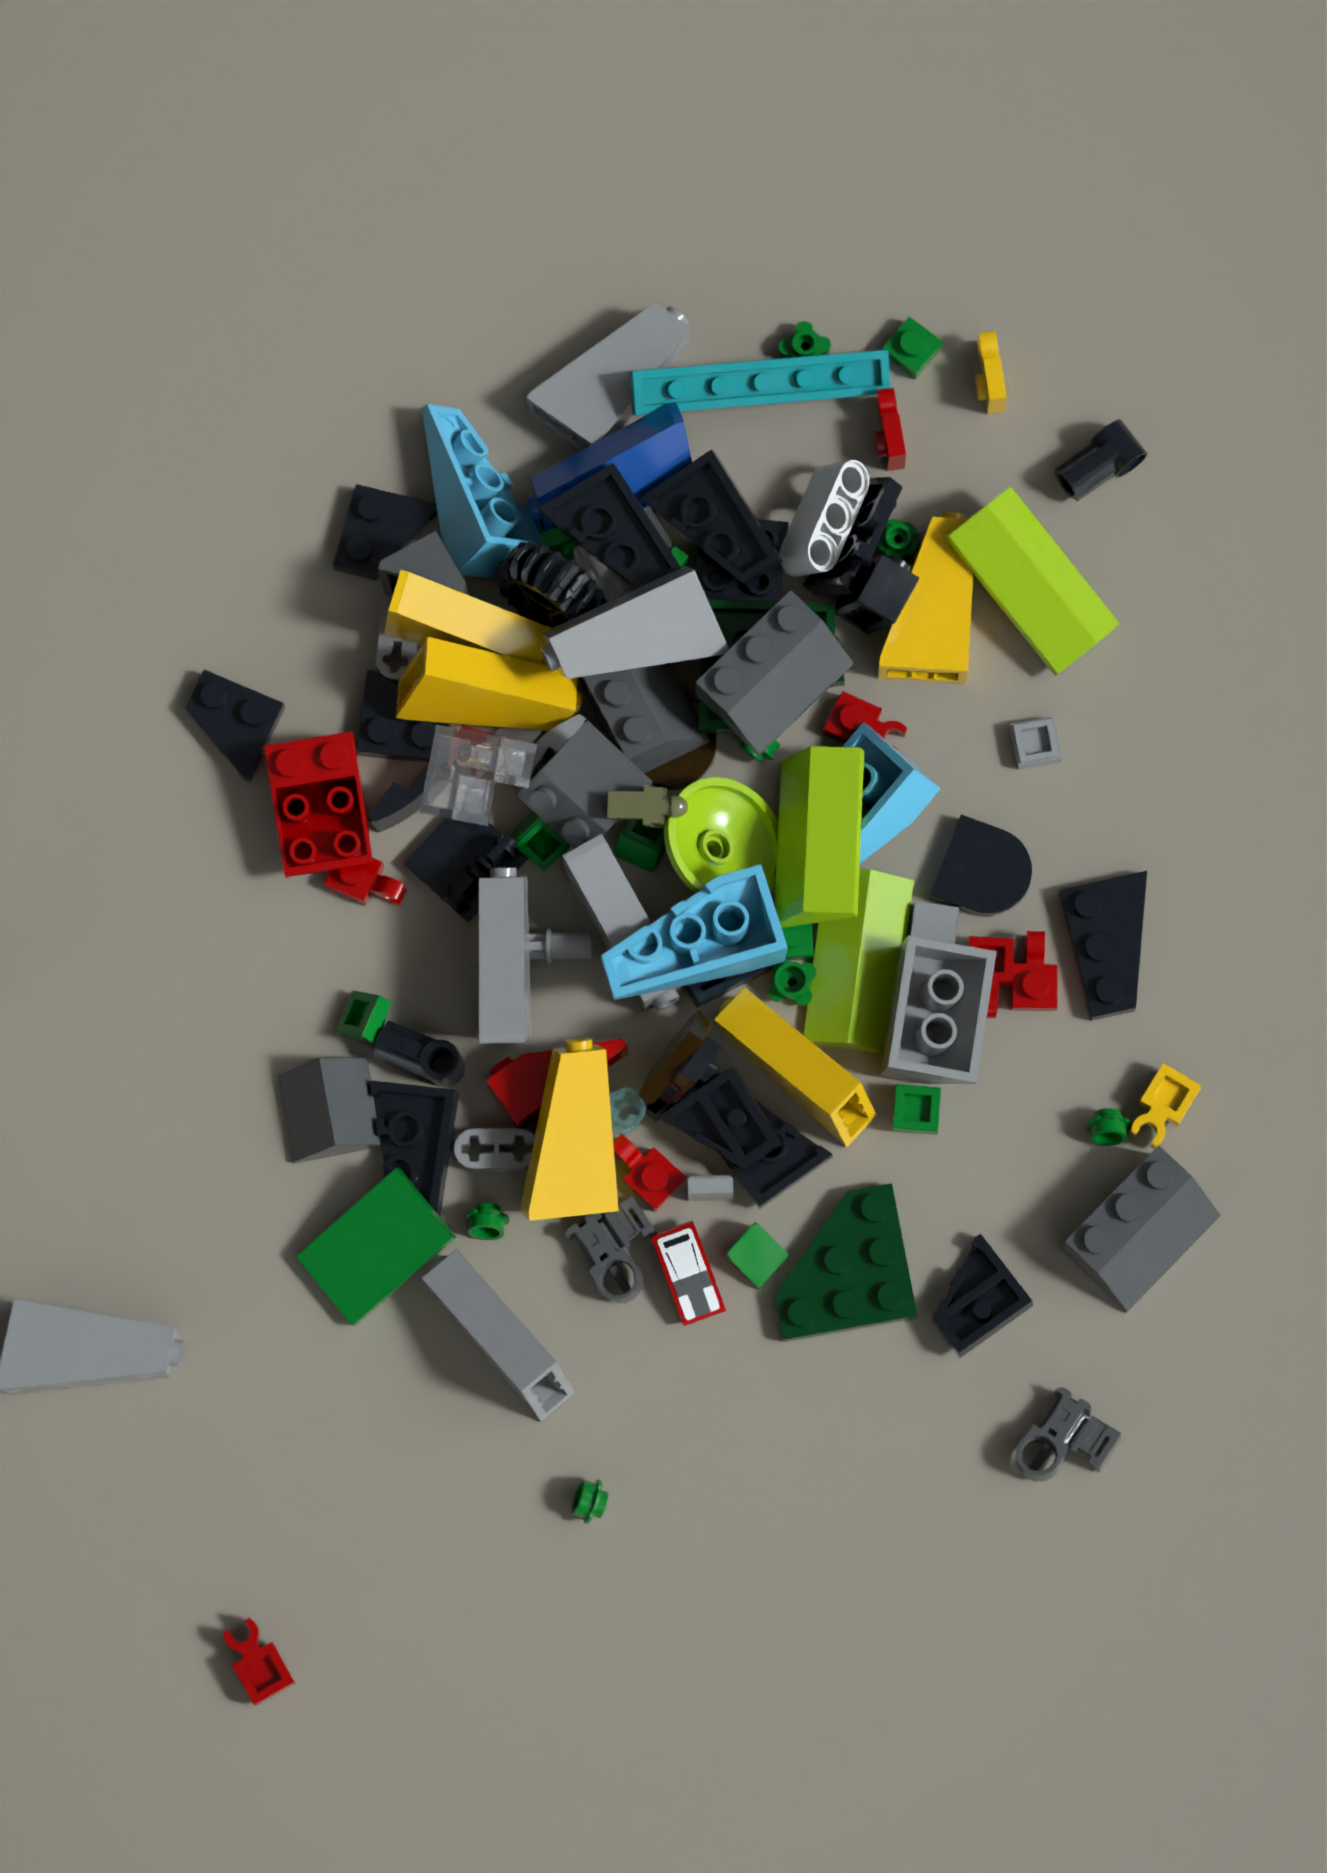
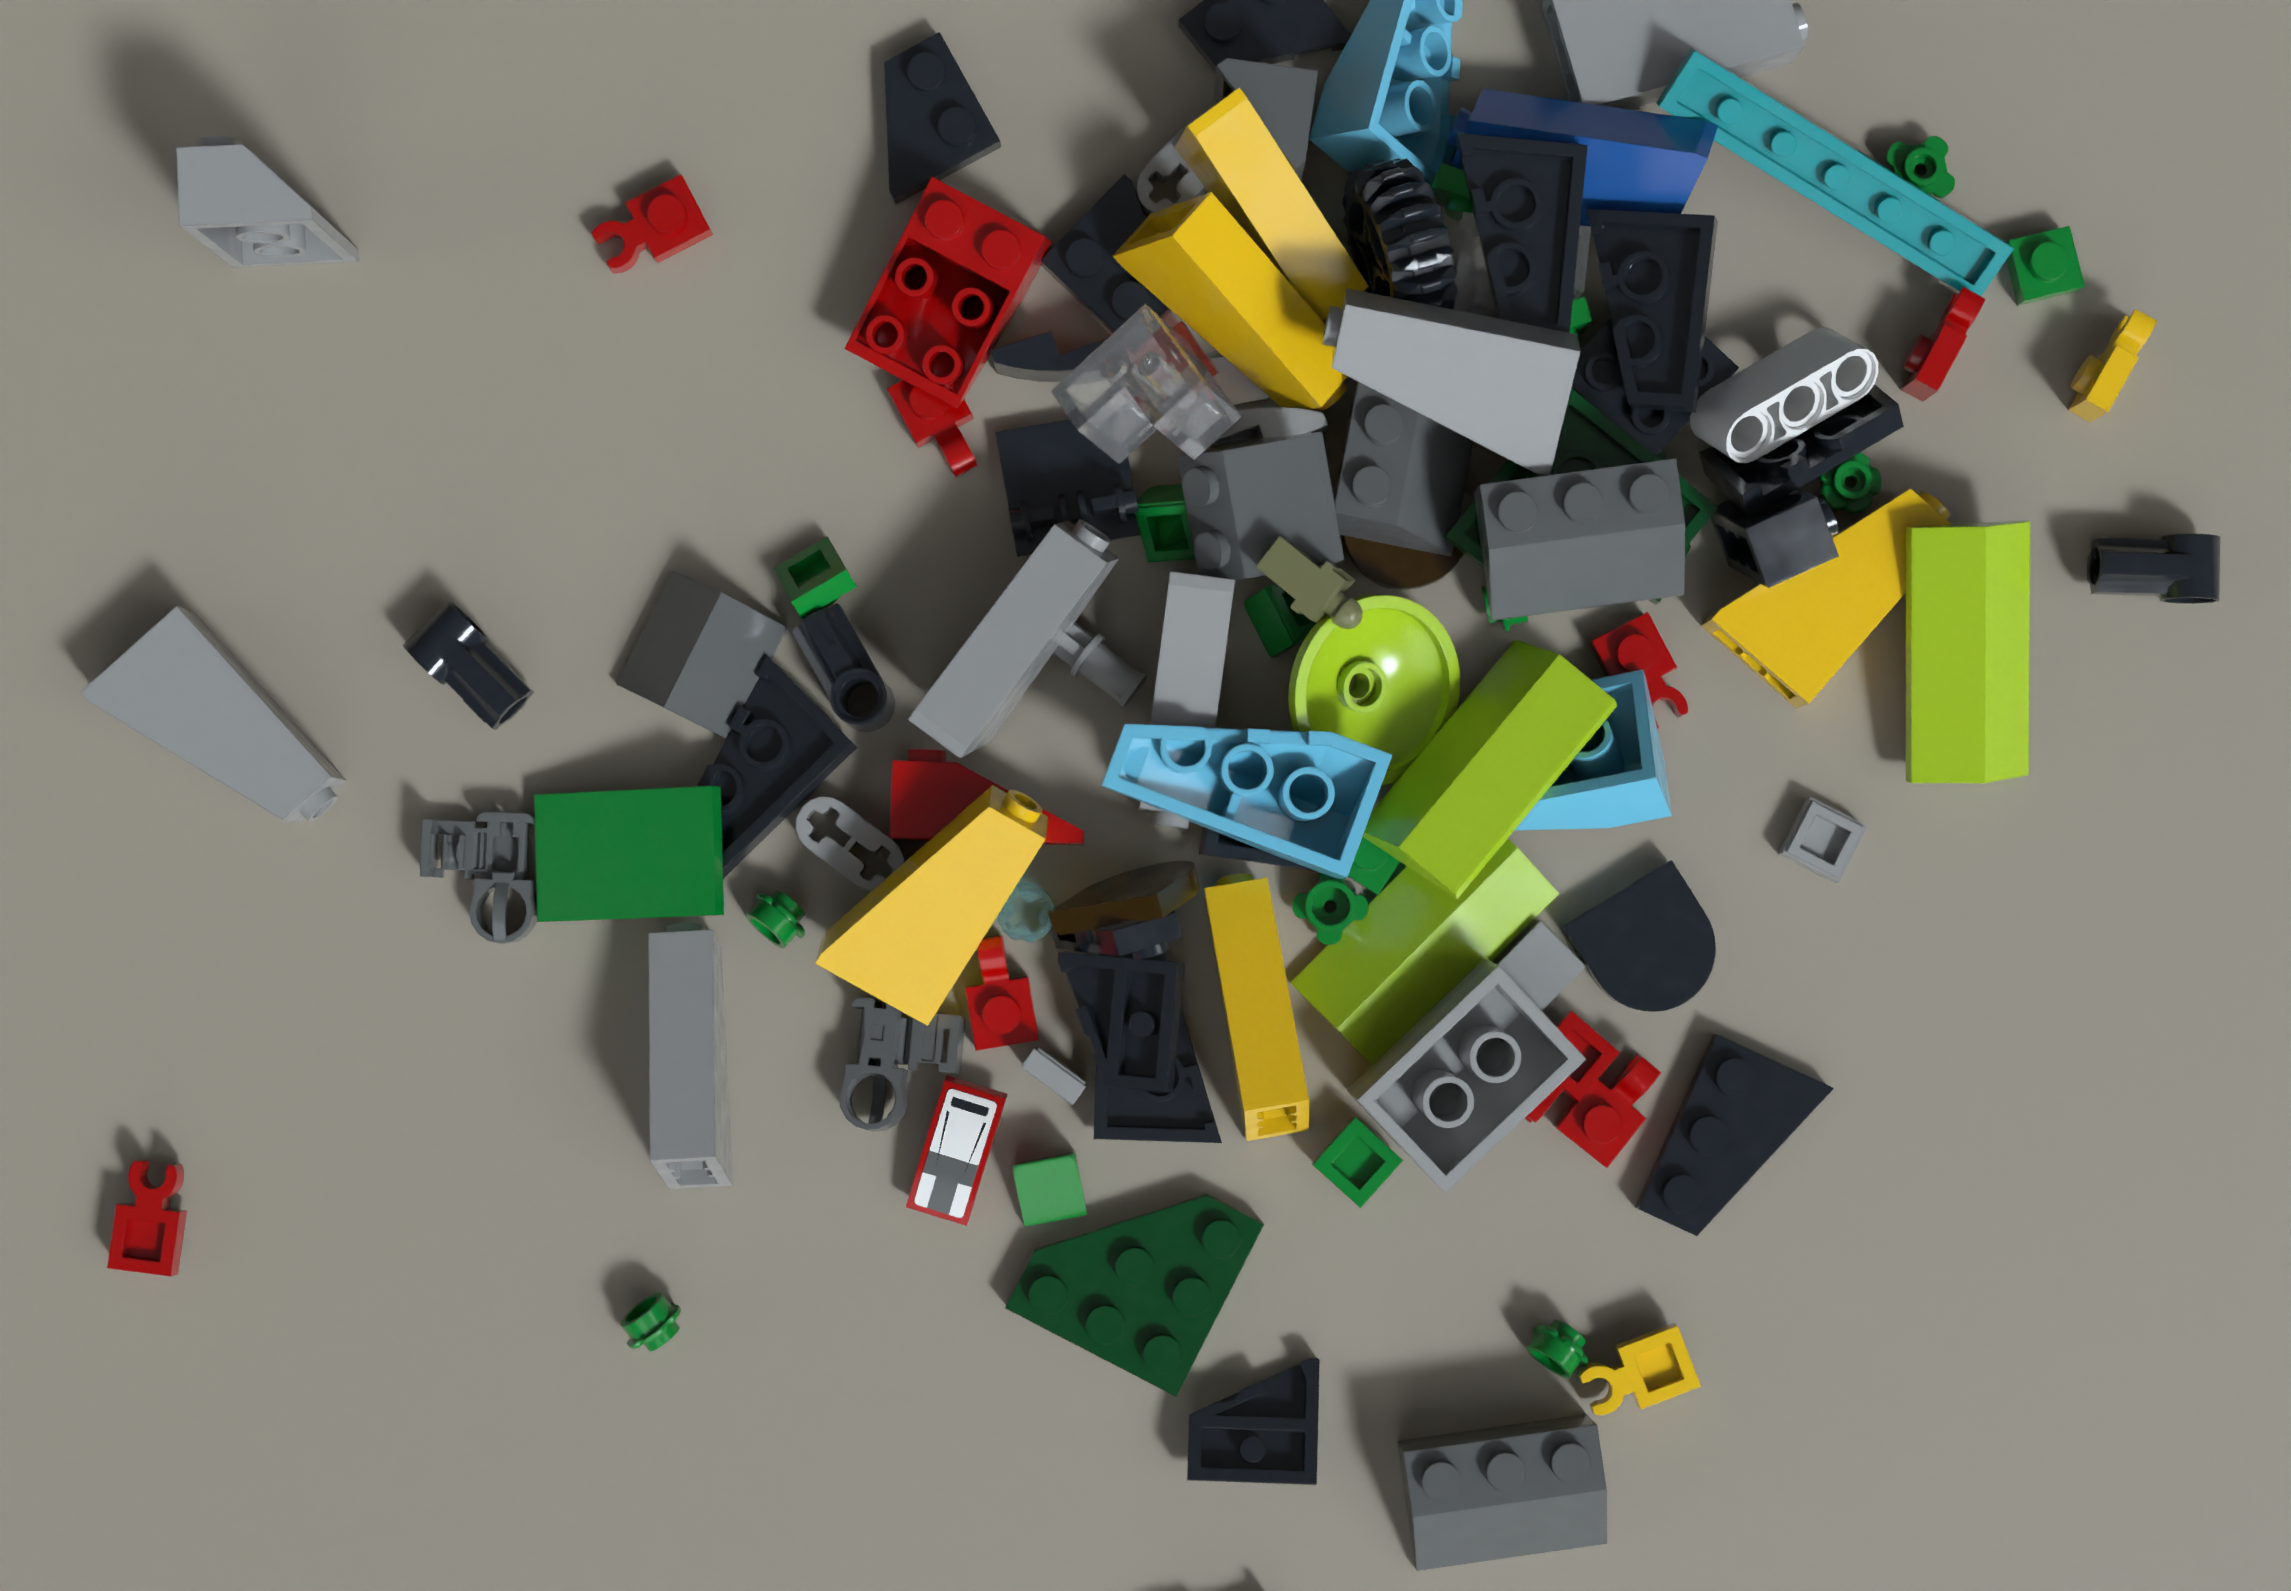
camera: 30 degrees right, 10 degrees up
(125, 888) = (662, 220): none -> red plate
(191, 1210) = (458, 655): none -> black piece
(295, 1307) = (491, 851): none -> dark grey piece

